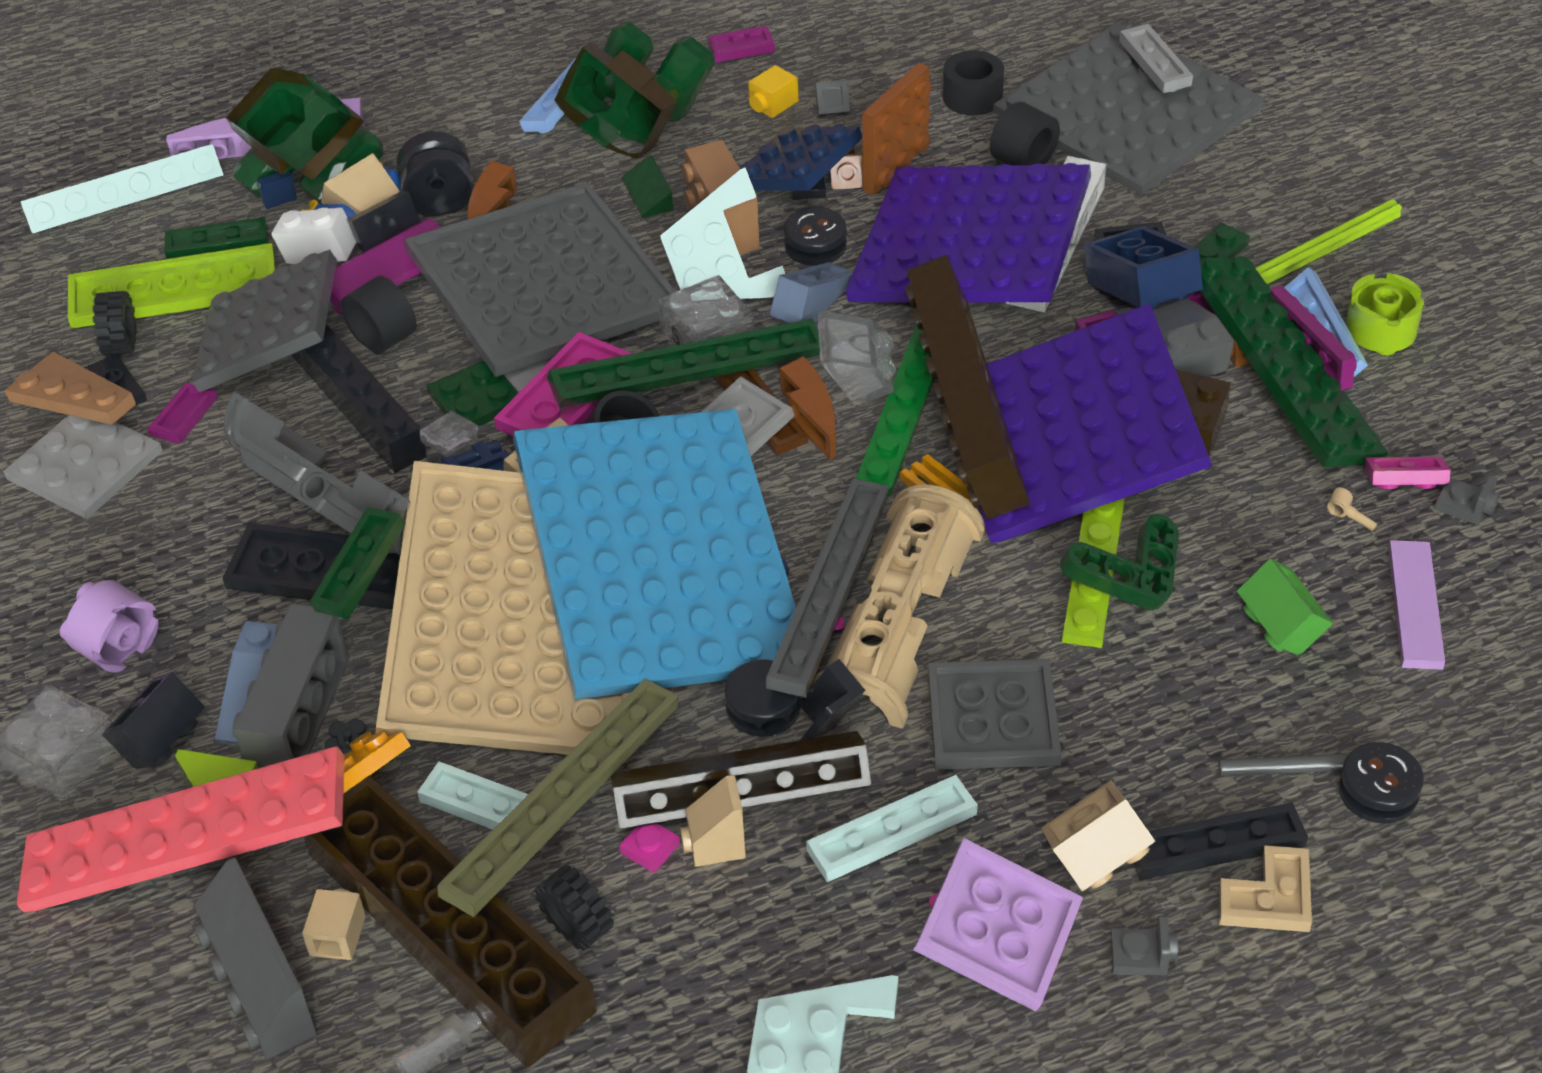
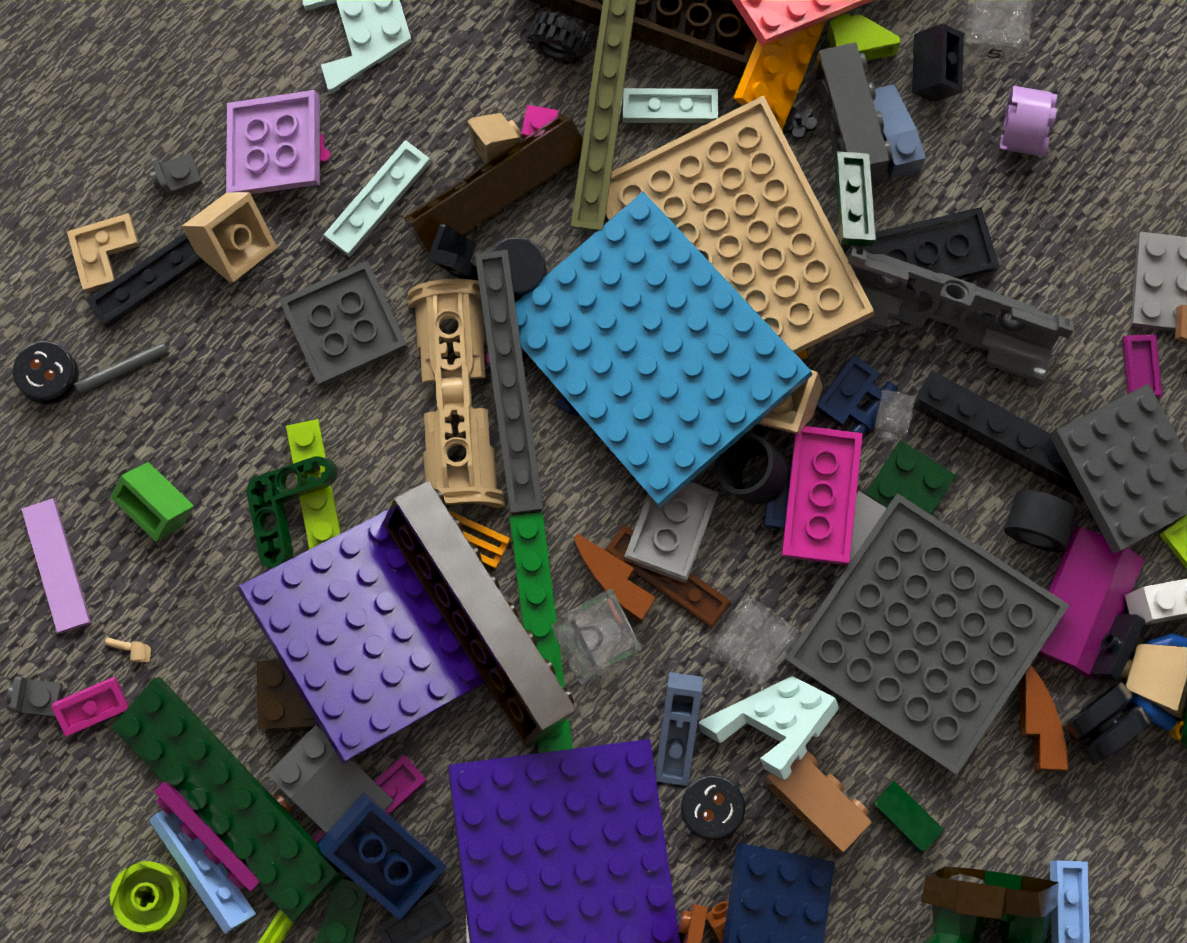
camera: 155 degrees right, 30 degrees up
(684, 362) = (734, 565): dark green plate -> none

